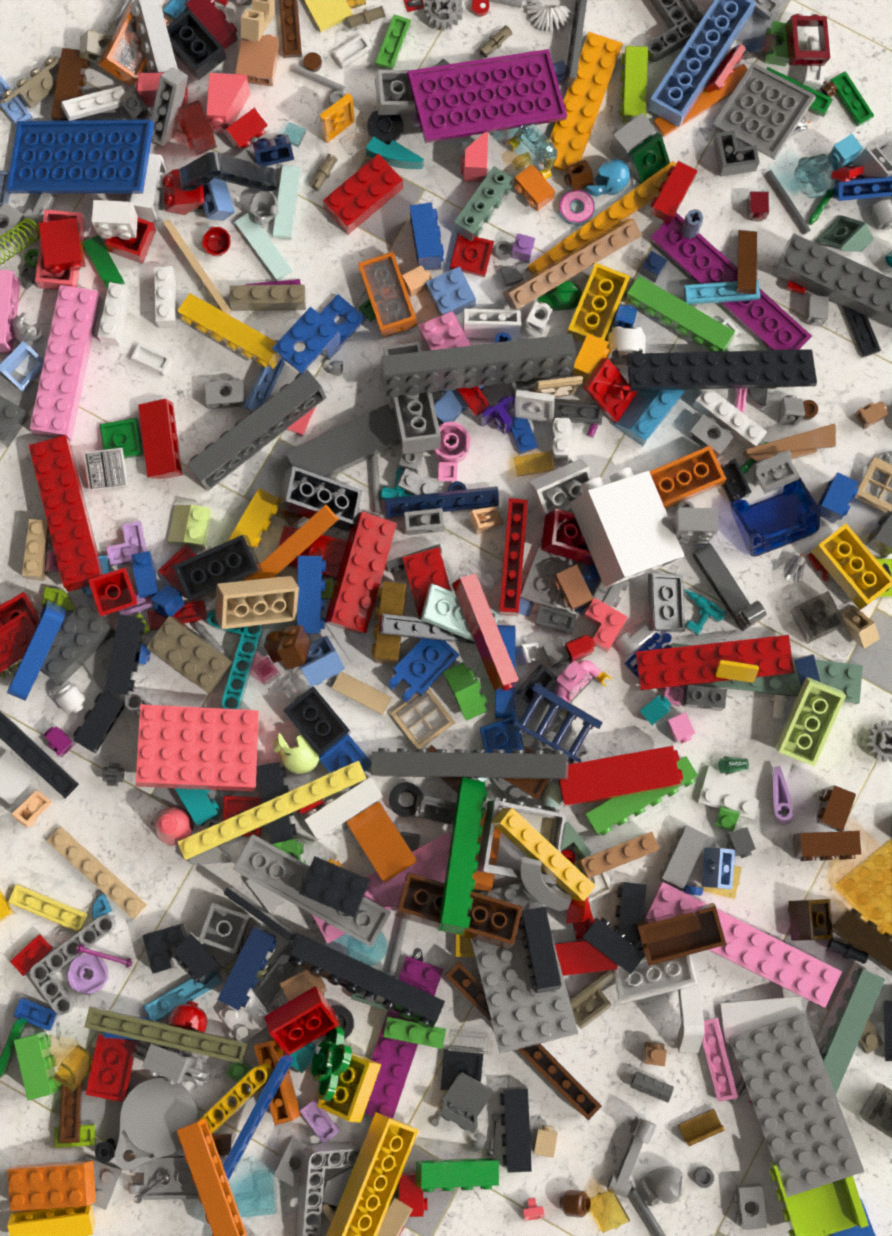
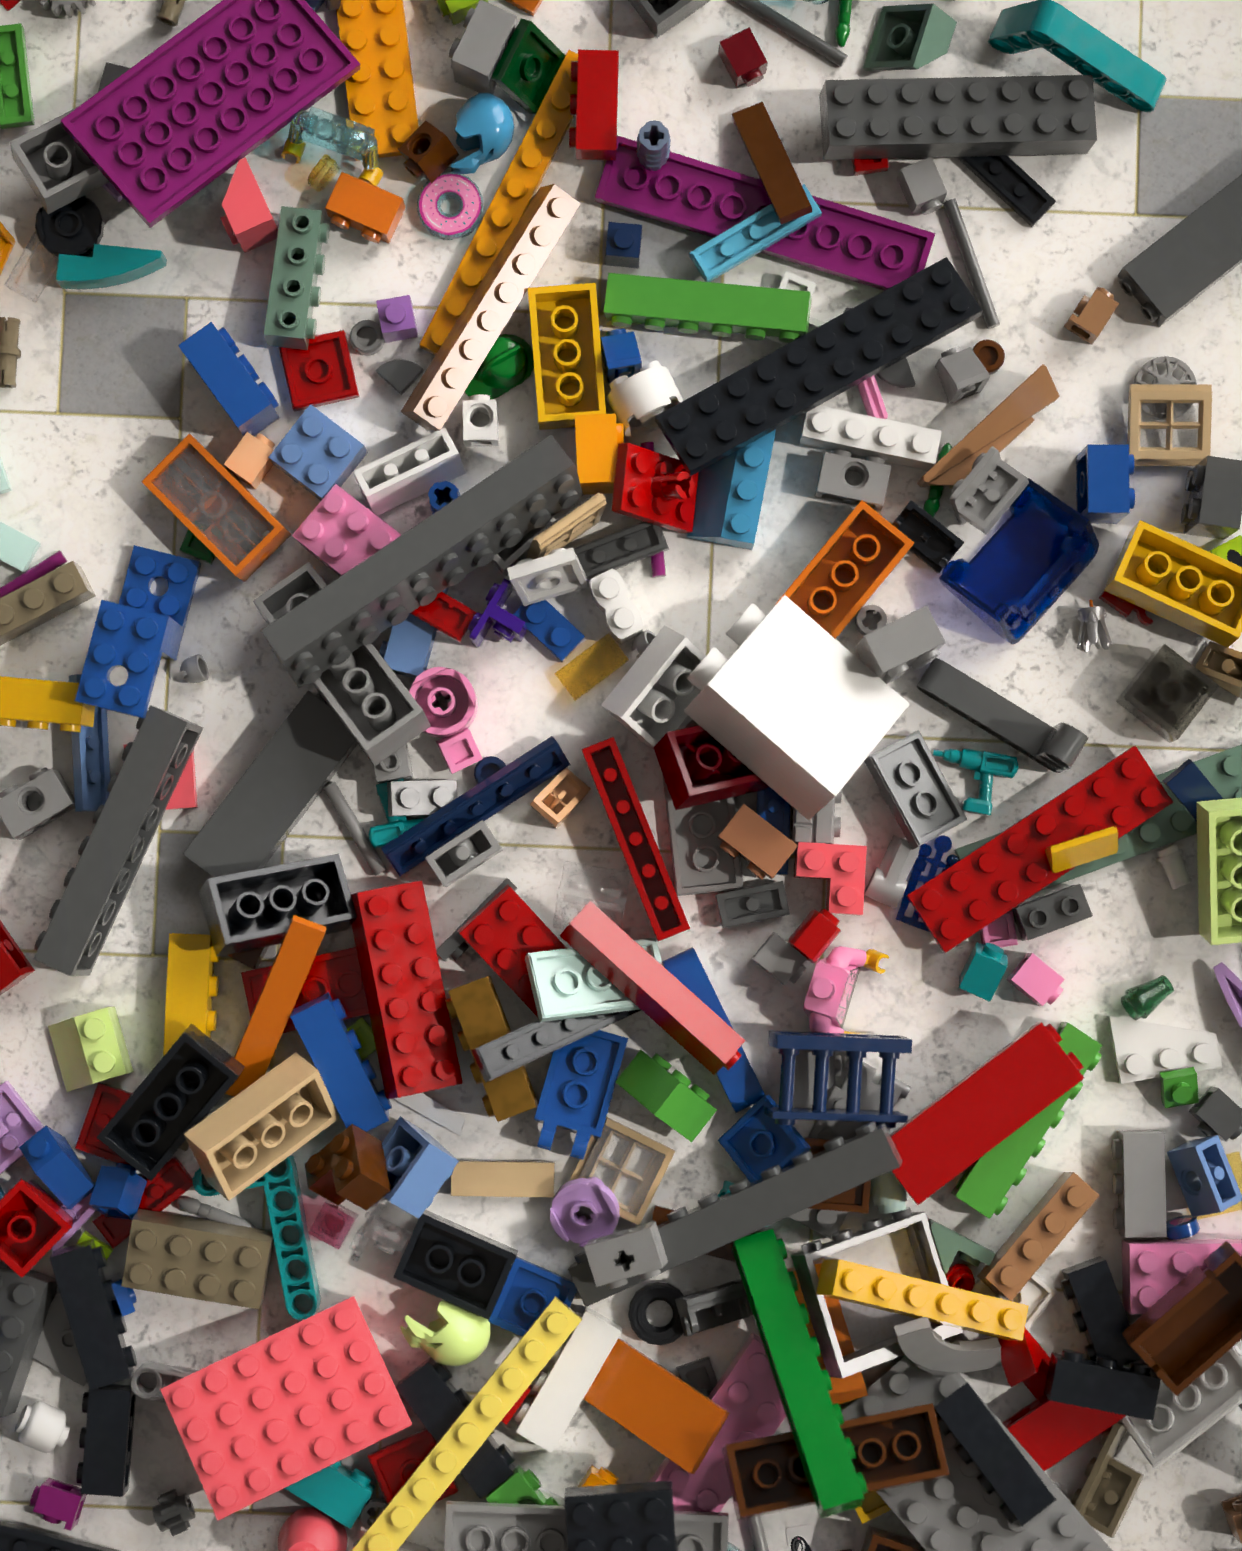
camera: 25 degrees left, 5 degrees up
(363, 194) = (91, 358): red brick -> none
(387, 736) = (586, 1193): none -> lavender plate
(395, 751) = (641, 1242): none -> light grey brick
(525, 607) = (694, 907): medium blue sticker -> none
(528, 653) = (736, 981): white slope -> none
(541, 676) = (774, 1013): black brick -> none
(823, 360) = (971, 263): none -> dark grey bar

